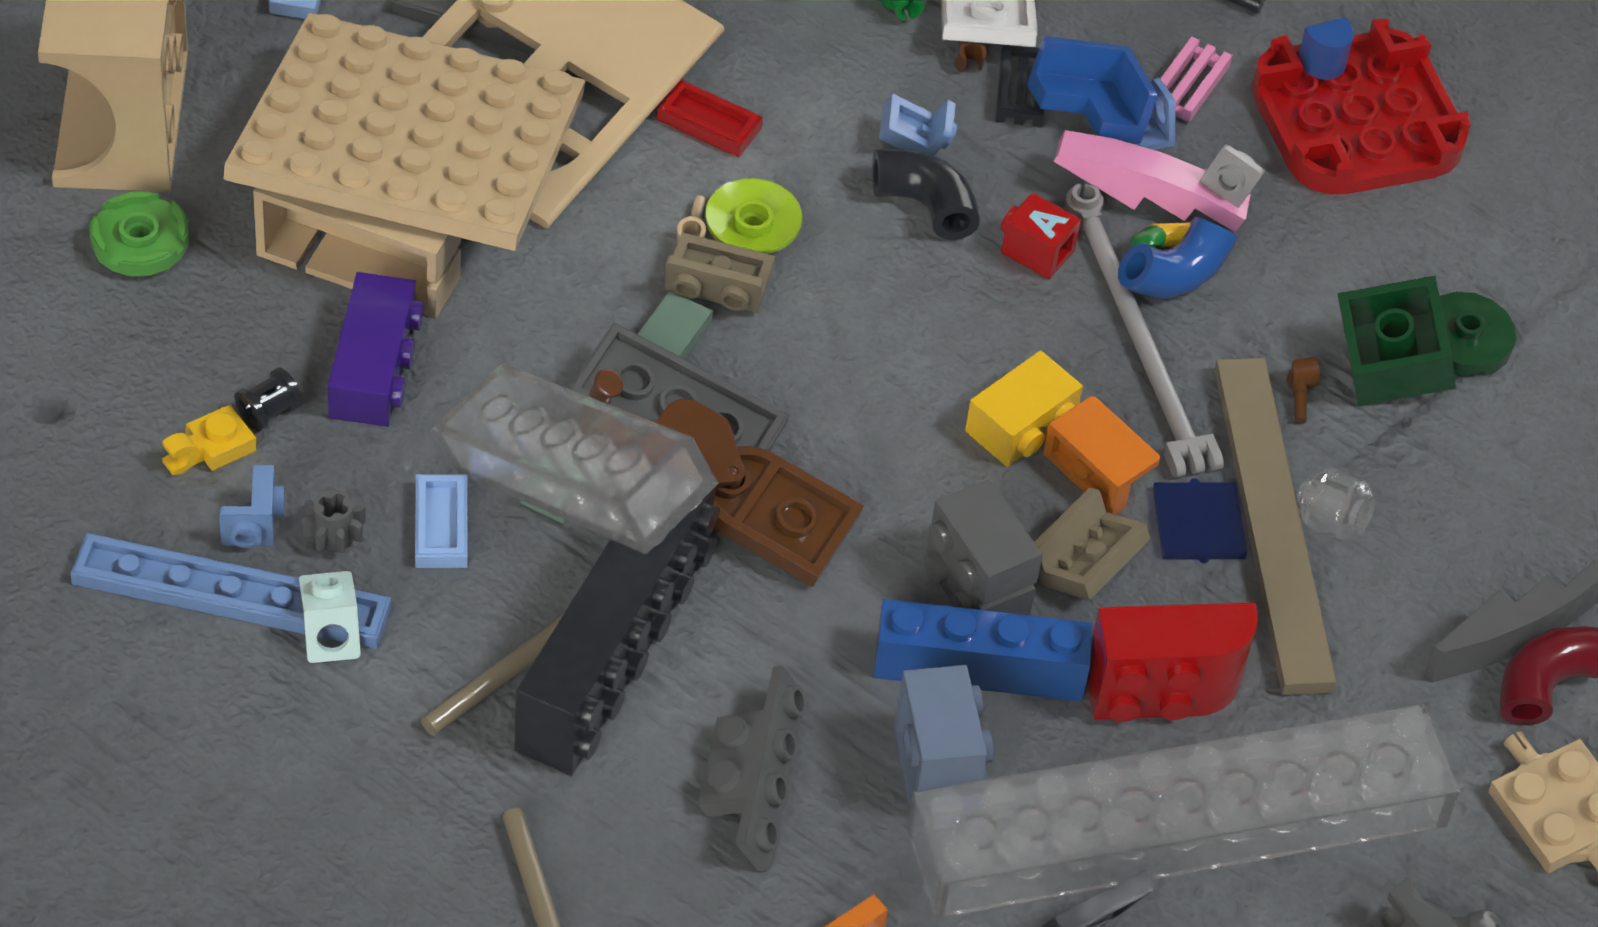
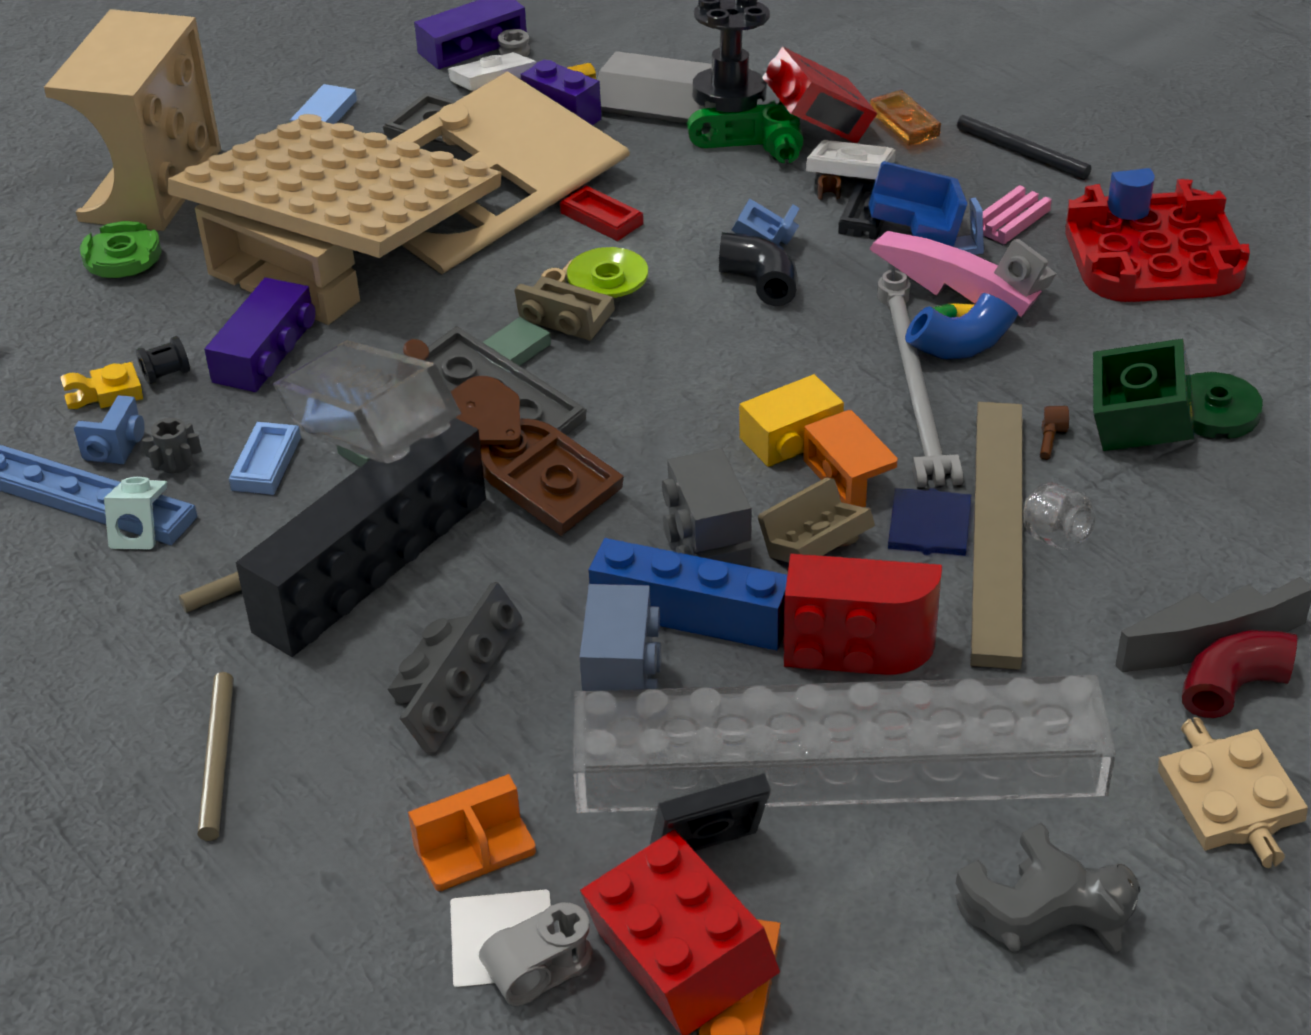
camera: 20 degrees right, 10 degrees down
(1039, 235) = (846, 303): red brick -> none

